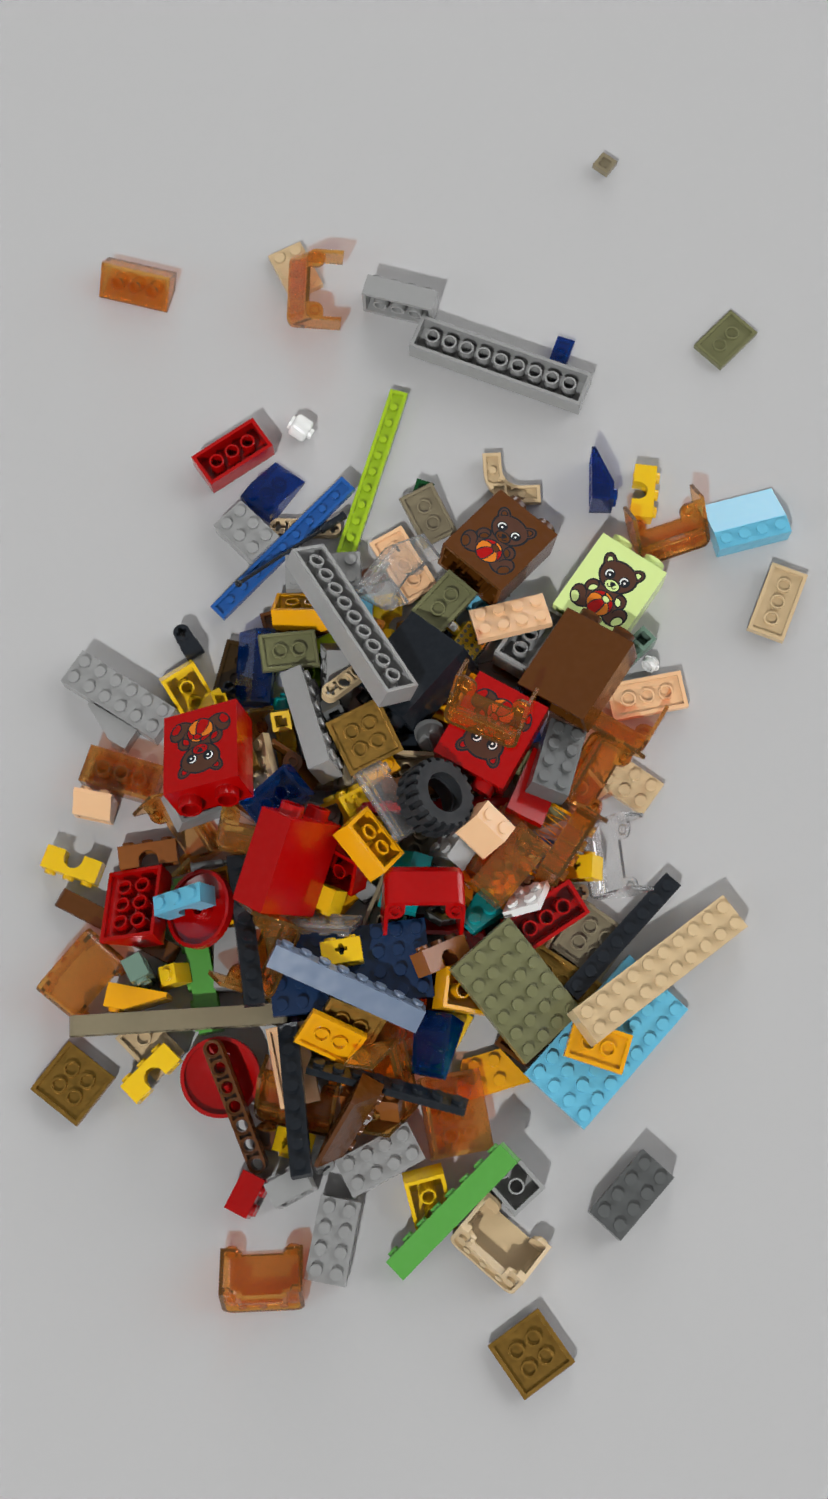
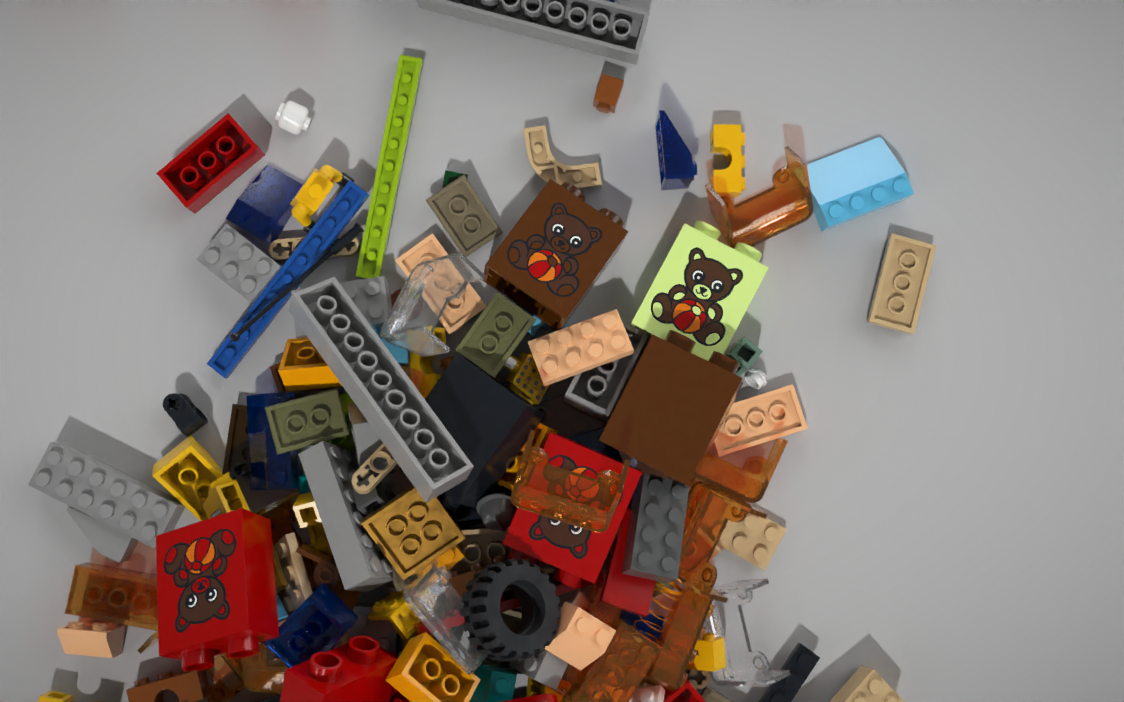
camera: 15 degrees left, 10 degrees up
(311, 484) = (314, 192): none -> yellow torso
(553, 434) = (608, 94): none -> dark orange brick

